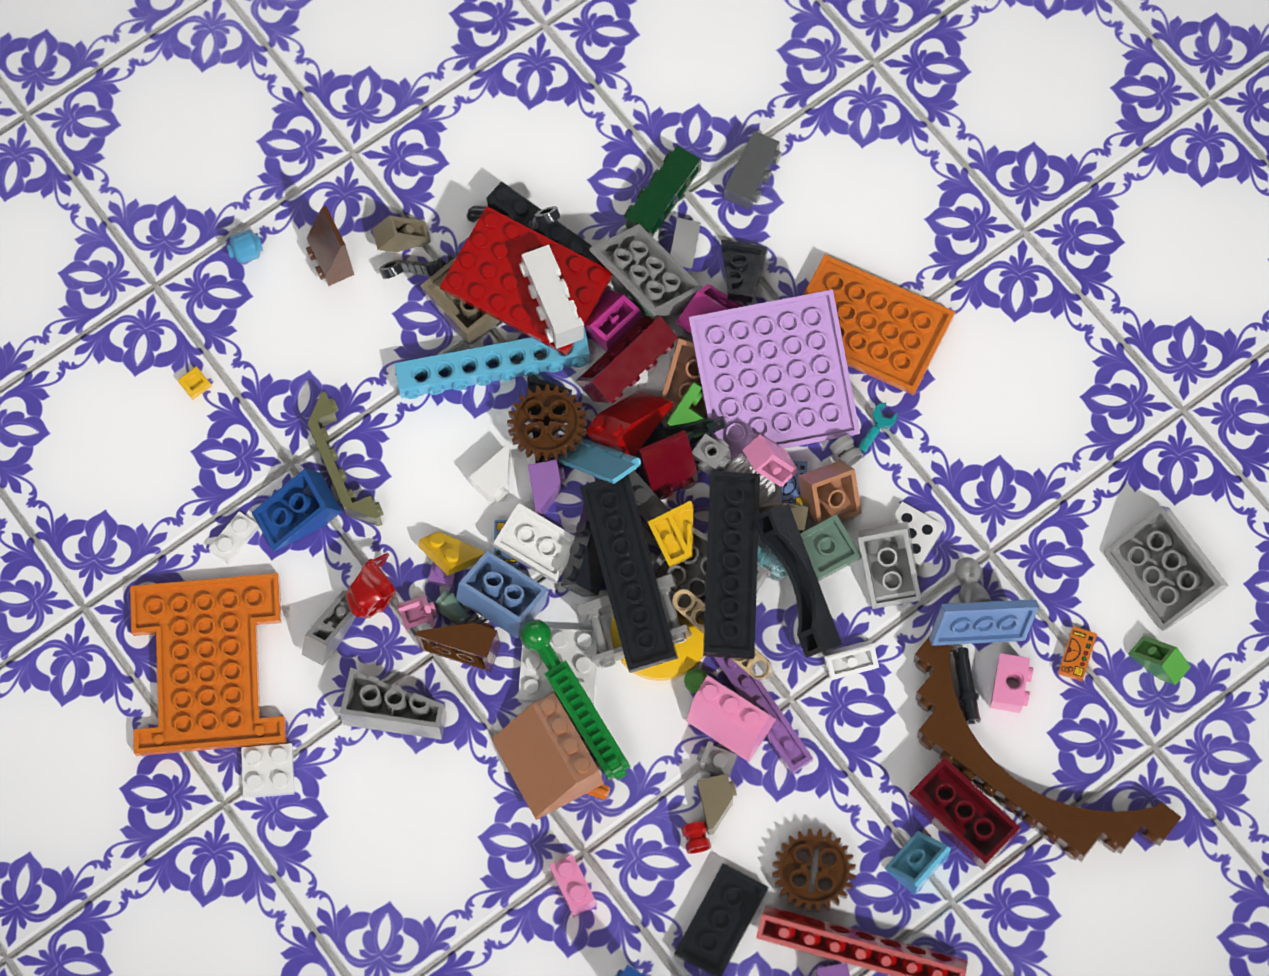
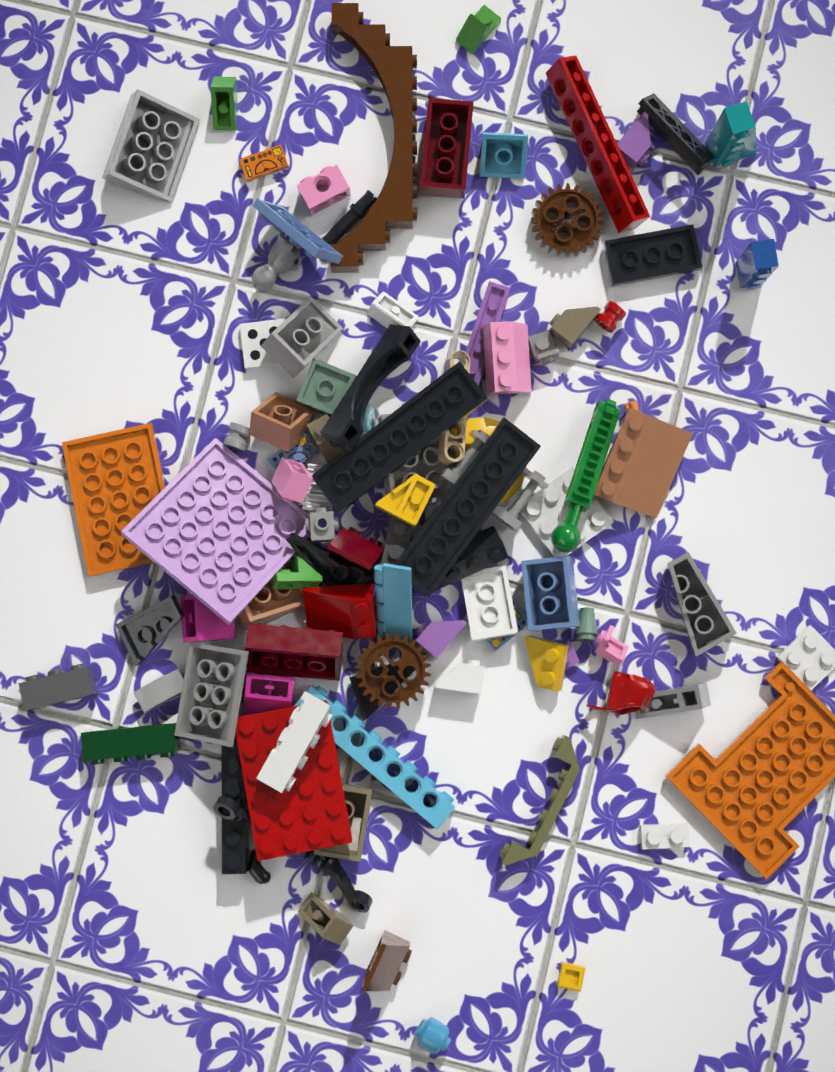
camera: 130 degrees left, 15 degrees up
(296, 509) = (607, 805): blue slope -> none
(463, 643) = (608, 586): reddish brown slope -> none
(573, 885) = (714, 372): bright pink brick -> none
(694, 679) = (497, 407): bright green plate -> none
(880, 422) = (203, 431): teal piece -> none
(1060, 938) = (477, 29): none -> bright green slope

